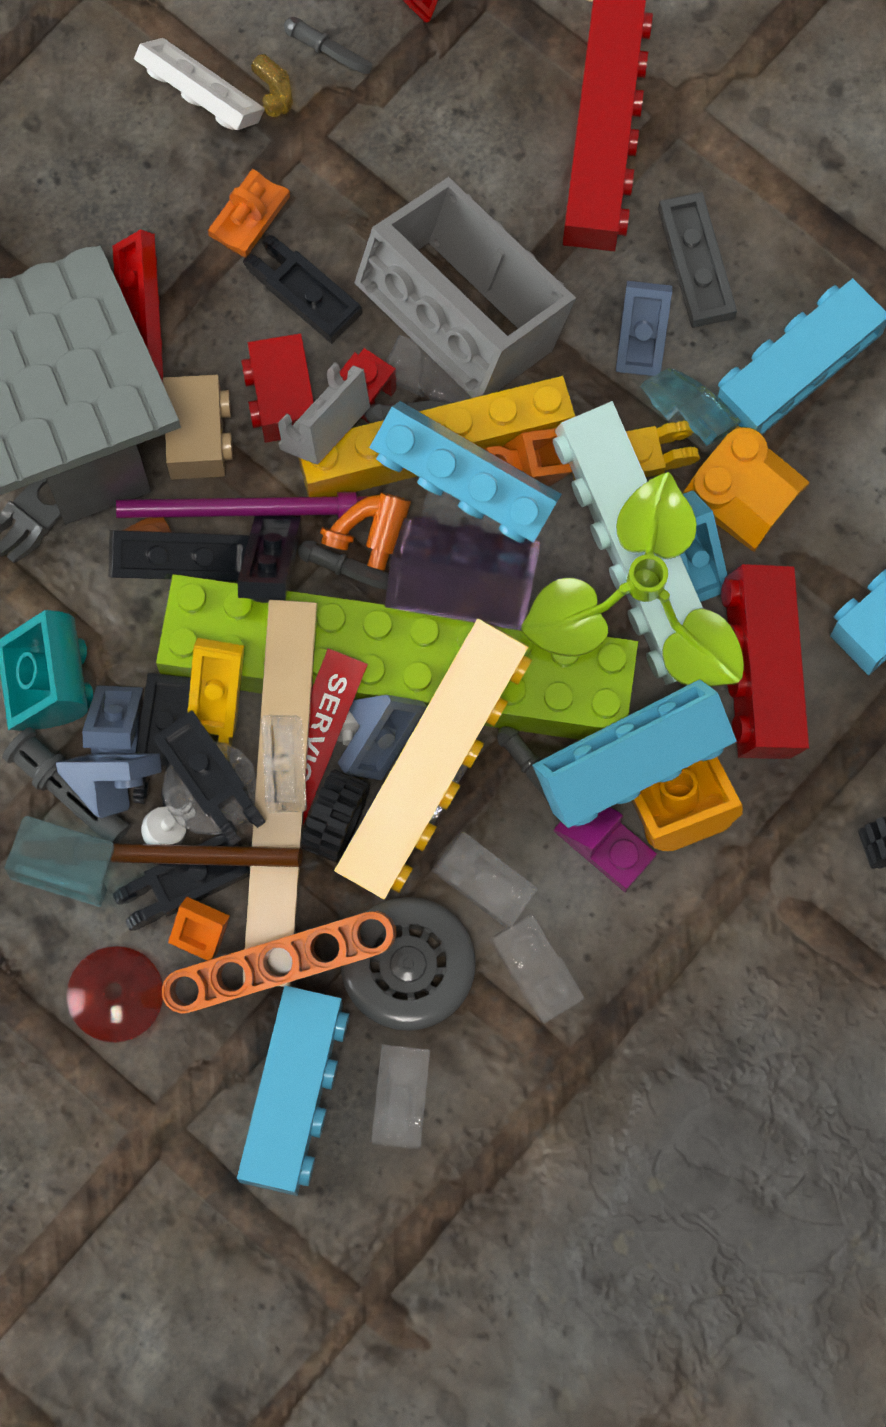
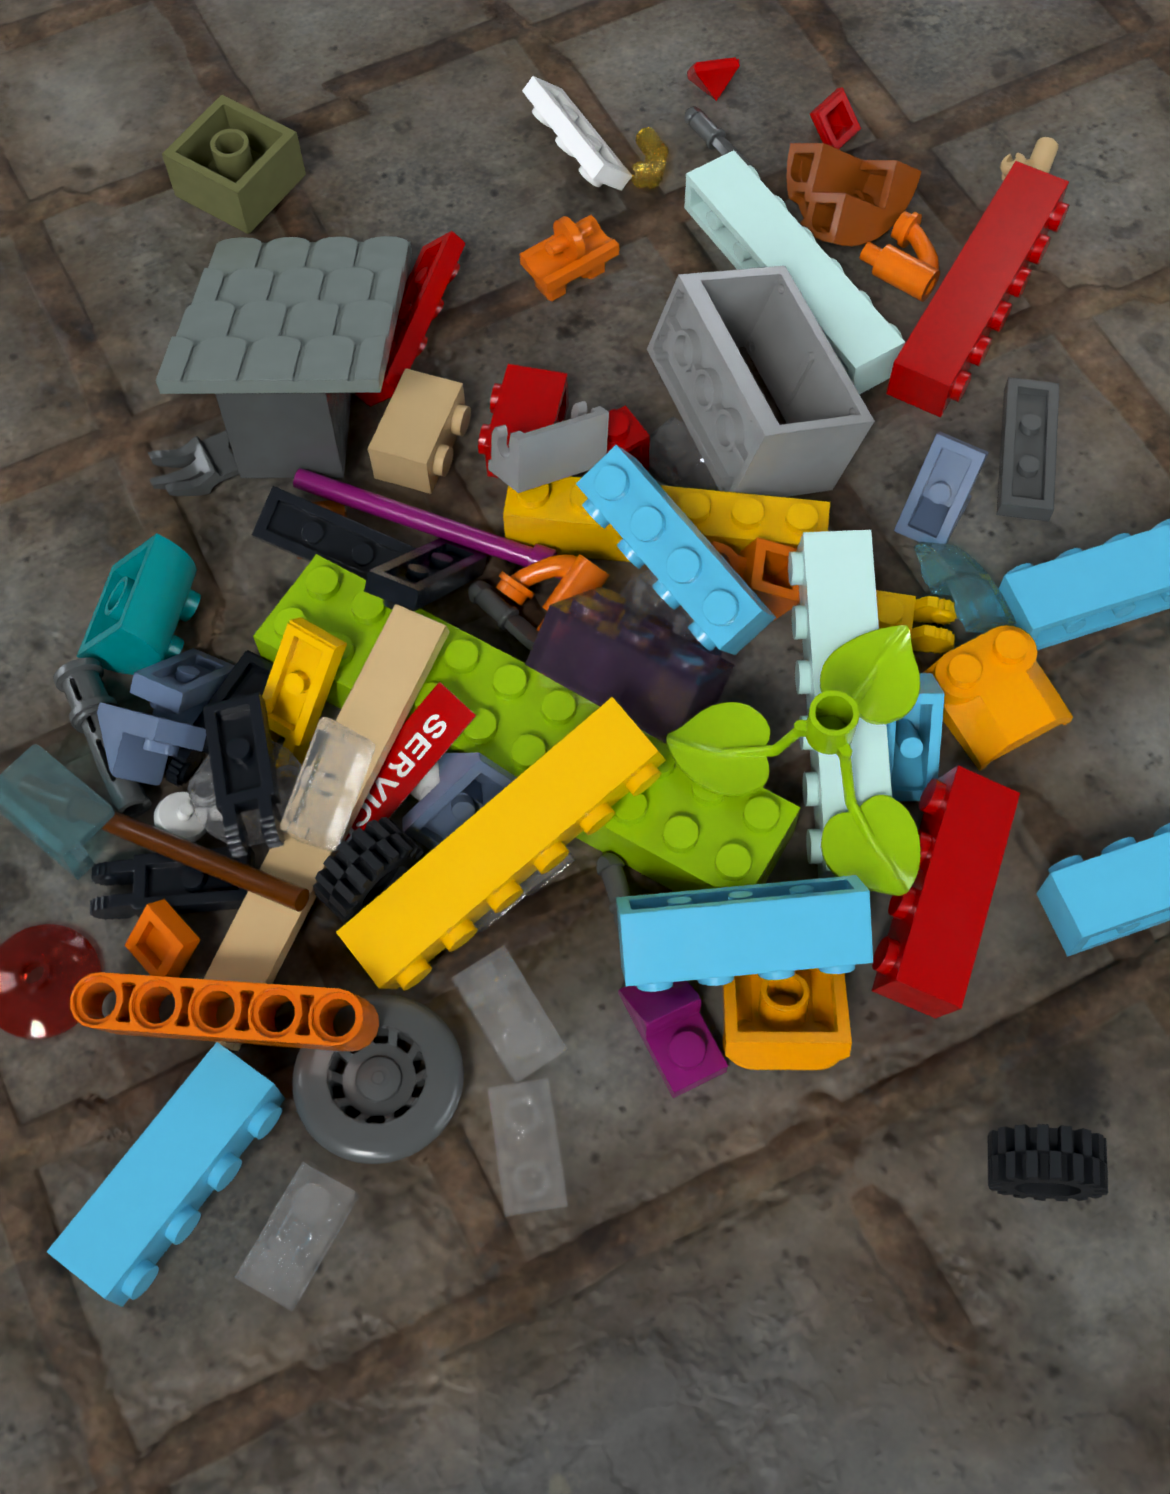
camera: 25 degrees right, 10 degrees down
(305, 289) = (596, 345): black hinge -> none
(430, 150) = (760, 232): none -> light aqua brick
(461, 67) = (847, 197): none -> dark orange brick
(532, 123) = (901, 269): none -> orange plant

